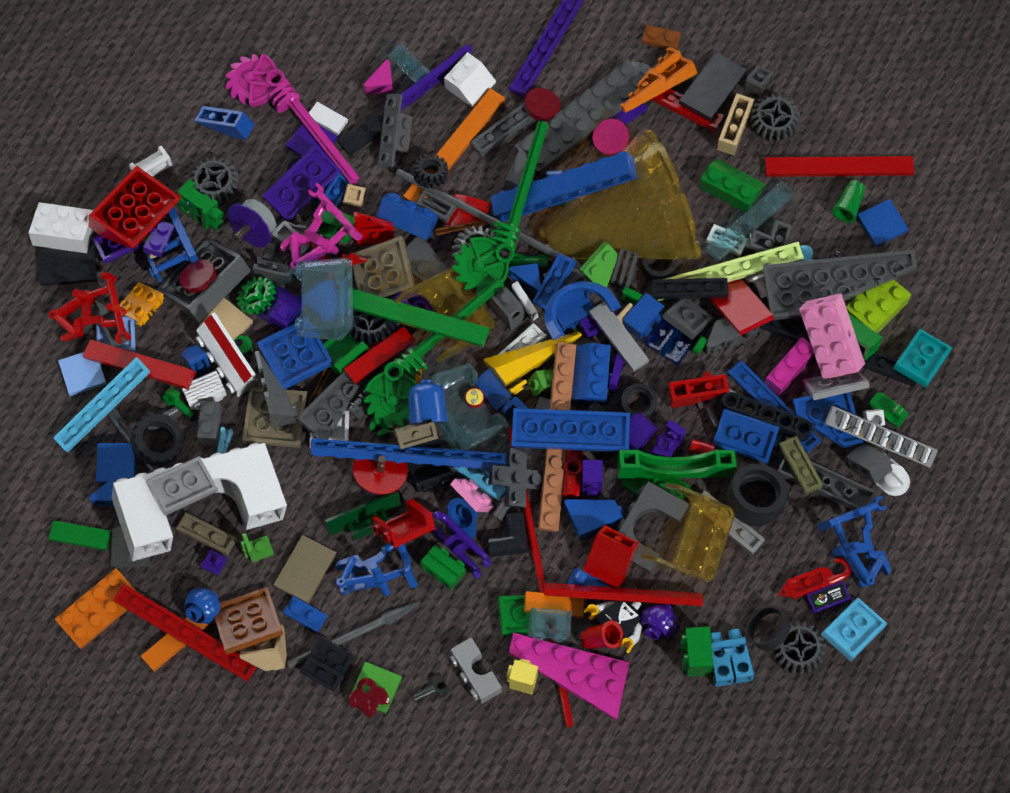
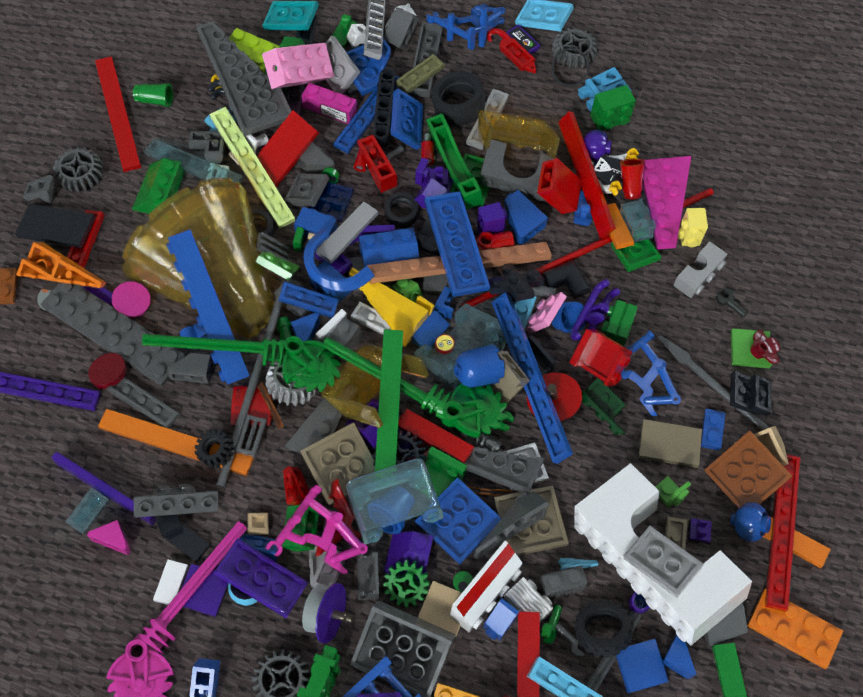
camera: 110 degrees left, 5 degrees down
(198, 276) = (408, 647): dark red tile -> none
(408, 216) = (271, 458): blue brick -> none
(469, 80) = (93, 448): white slope -> none
(690, 288) = (279, 191): black tile -> none
(735, 124) = (94, 195): tan brick -> none
(882, 223) = (167, 69): blue tile -> none

